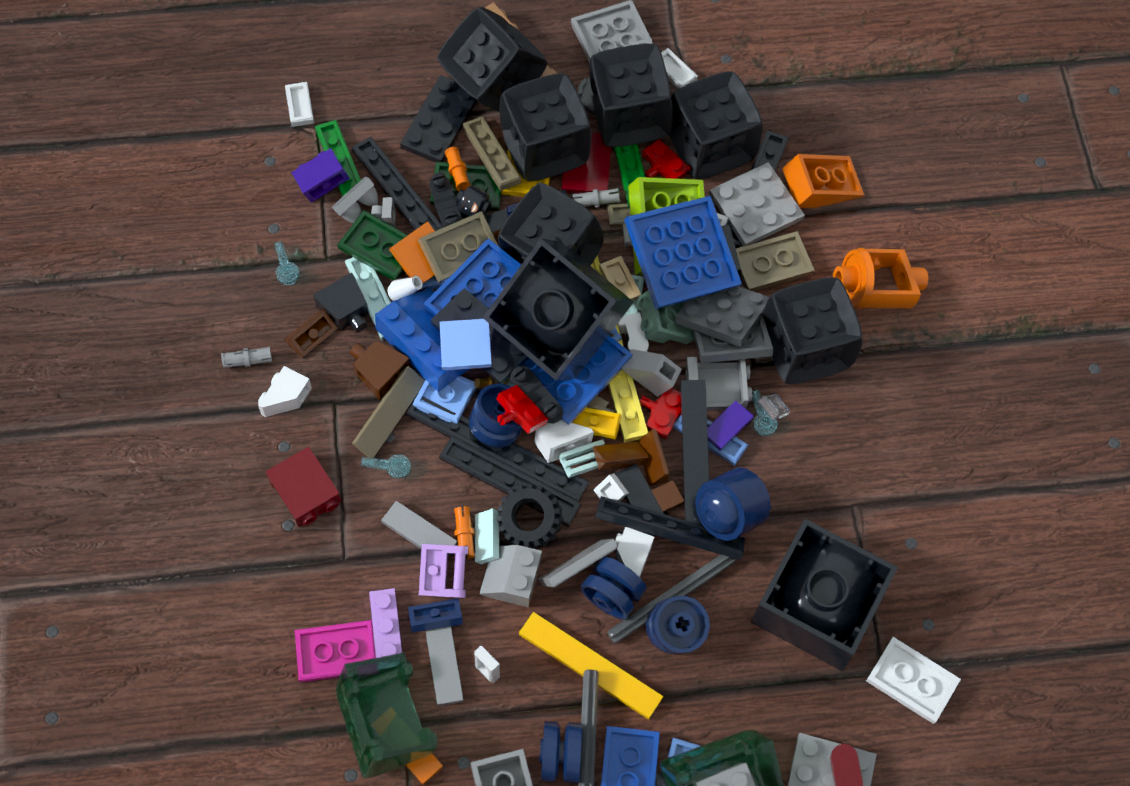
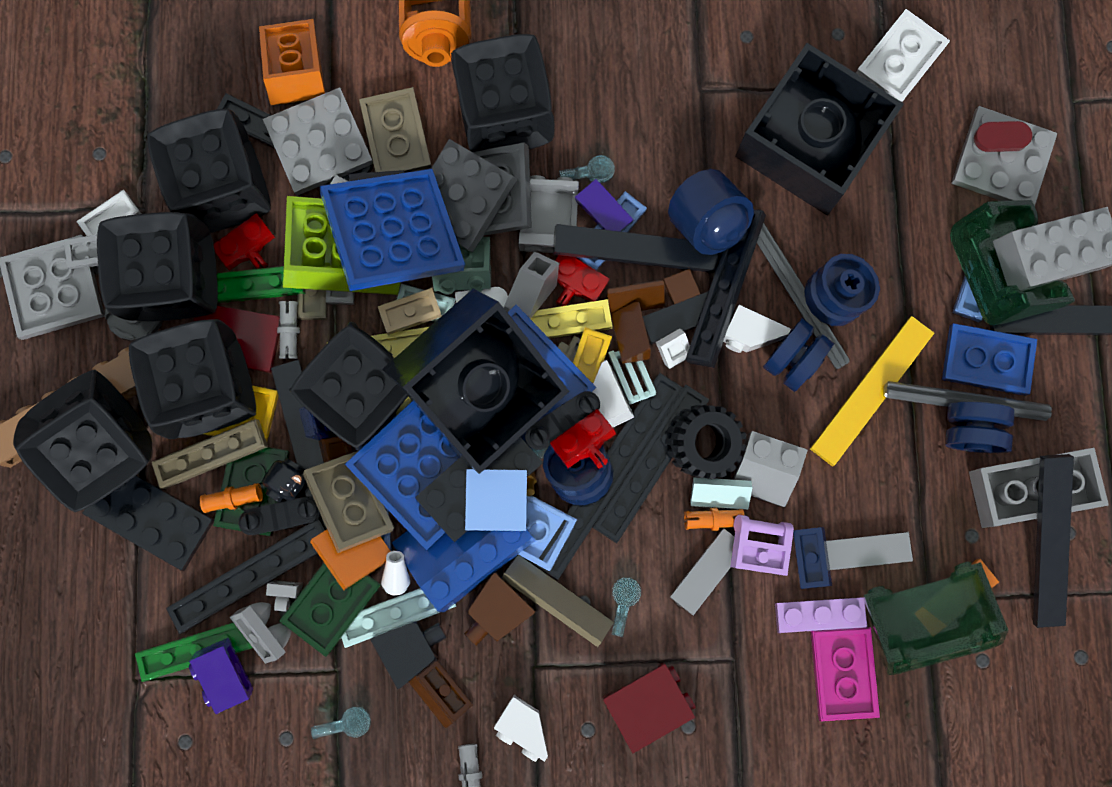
camera: 85 degrees left, 15 degrees up
(299, 104) = (103, 701): white tile -> none
(487, 665) = (880, 502): white tile -> none
(577, 563) = (765, 392): light grey tile -> none
(774, 406) = (582, 155): clear tile -> none

